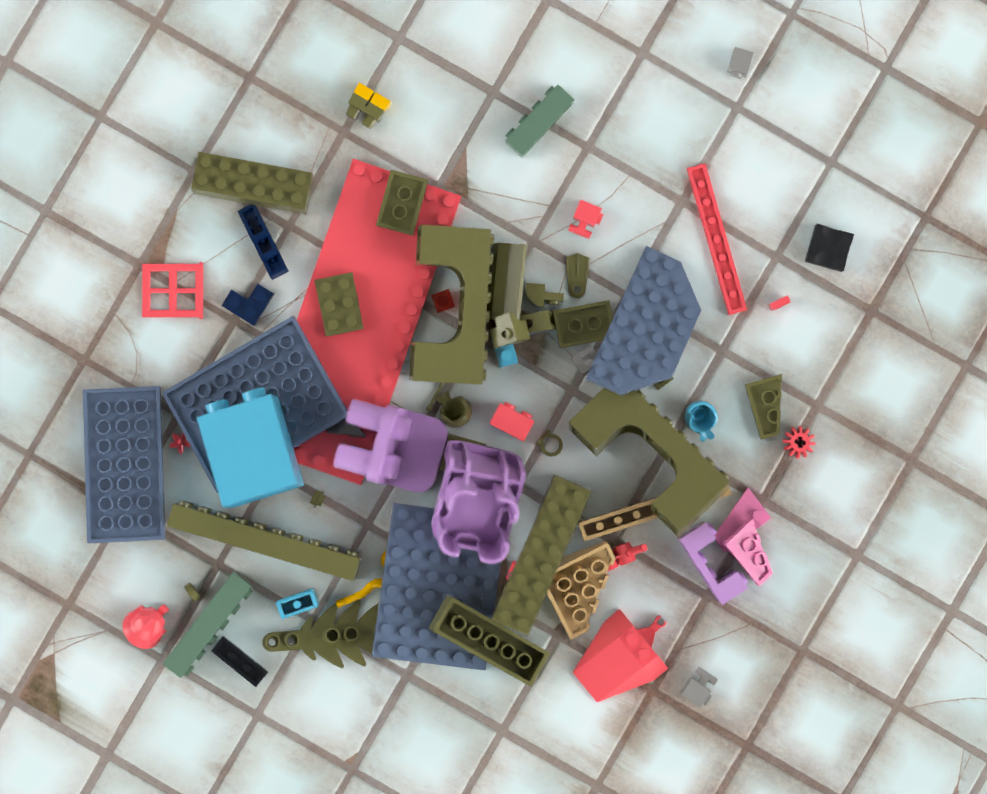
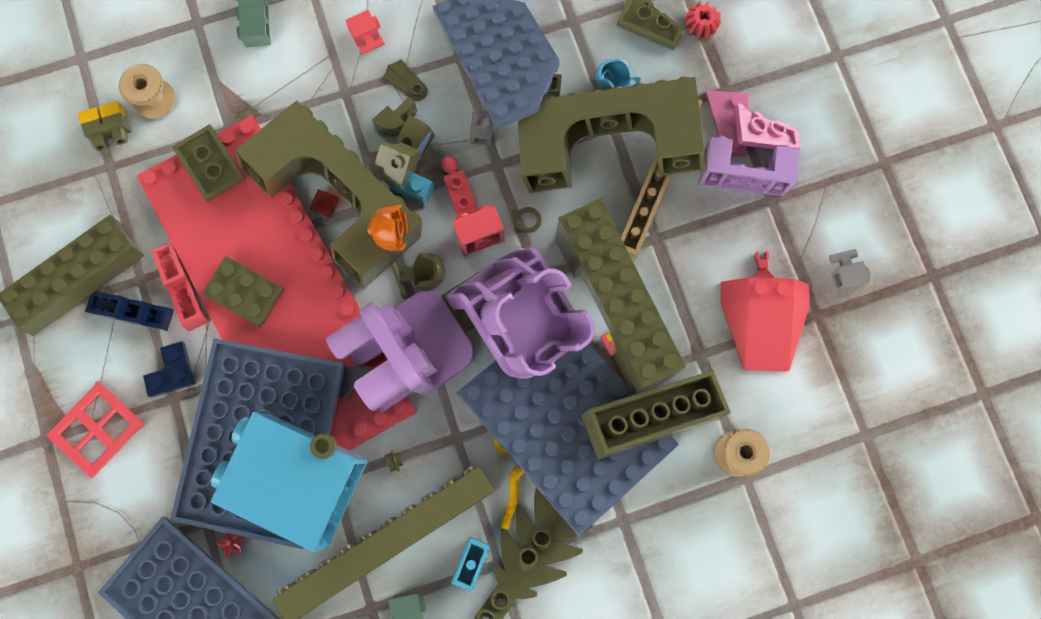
camera: 55 degrees left, 10 degrees down
(288, 457) = (323, 446): none -> olive tile
(306, 256) = (180, 287): none -> coral slope
(409, 104) = (147, 91): none -> tan hose
(457, 370) = (388, 227): none -> orange cylinder
(507, 279) = (353, 128): olive slope -> none
(516, 725) = (754, 448): none -> tan hose
(531, 379) = (458, 187): none -> coral plate
(578, 585) = (674, 294): tan slope -> none
(582, 323) = (450, 106): olive plate -> none
(625, 554) = (674, 240): coral beam -> none

